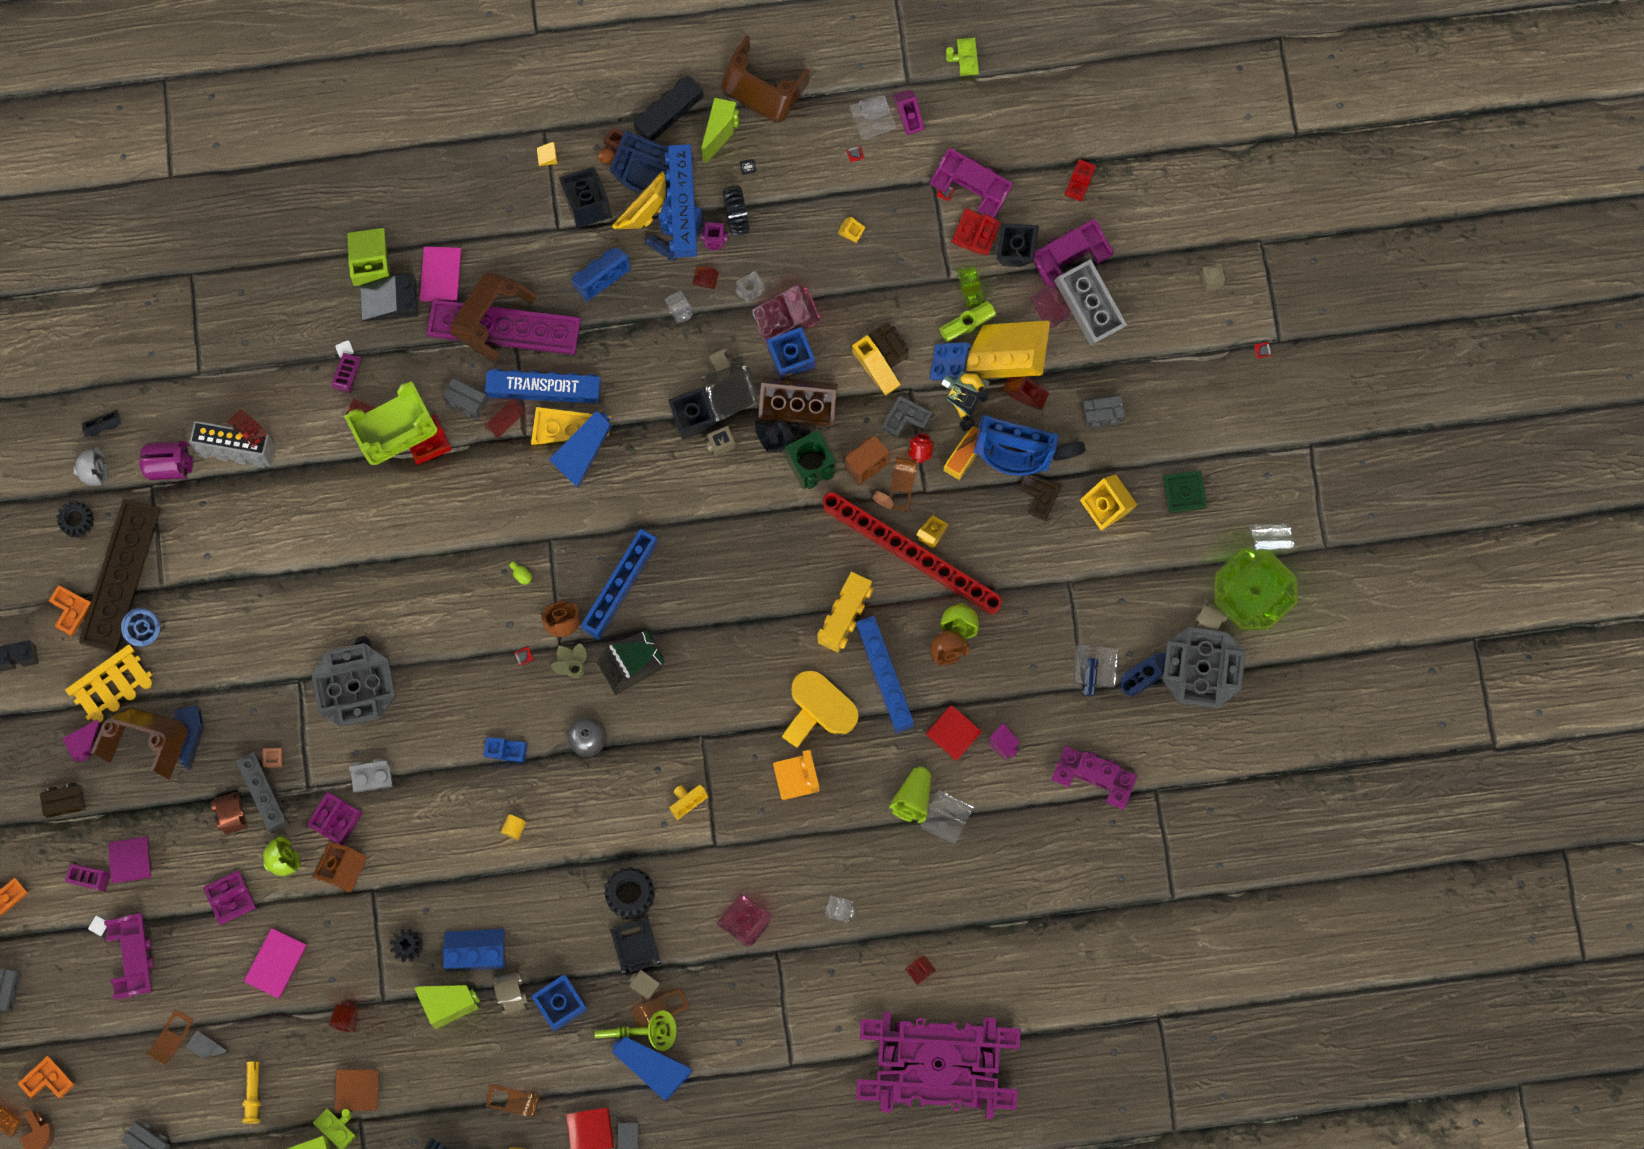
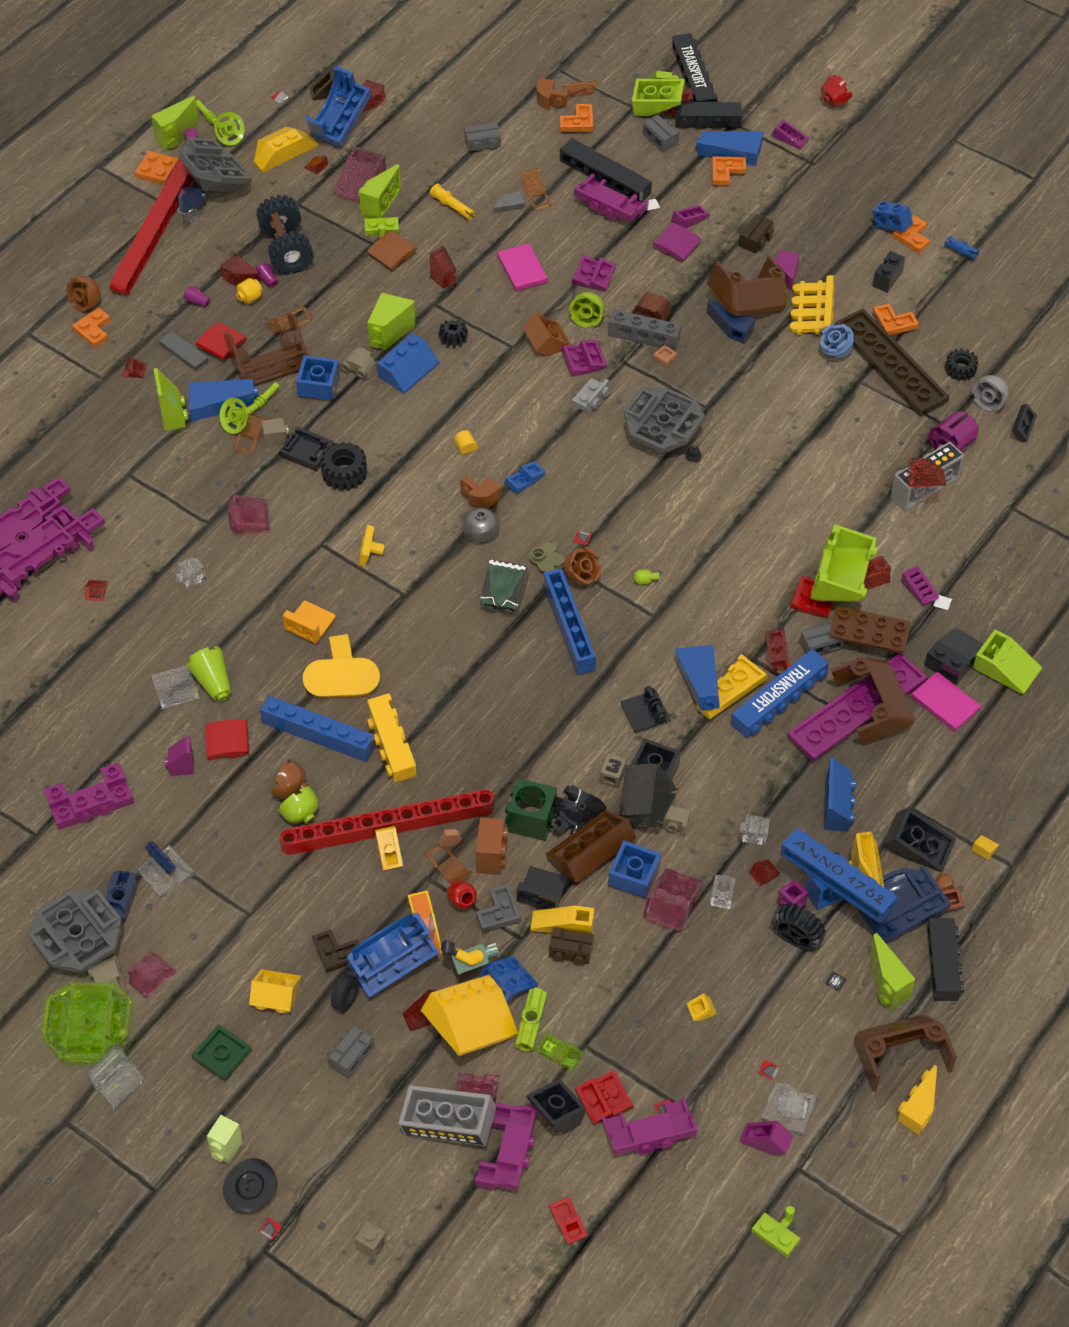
camera: 130 degrees right, 20 degrees down
(95, 995) = (617, 176): none -> black brick
(429, 366) = (870, 629): none -> reddish brown bracket
(554, 761) = (481, 495): none -> dark orange brick
(573, 1065) = (272, 363): none -> reddish brown windscreen
(645, 467) = (645, 710): none -> black hinge
(700, 1091) = (170, 402): none -> lime slope
(794, 41) = (919, 1108): none -> yellow slope
(862, 404) = (541, 888): none -> black bracket
(1177, 594) = (149, 974): none -> clear pink cylinder
(1243, 422) = (224, 1139): none -> yellowish green brick
(1254, 381) = (249, 1185): none -> black hat

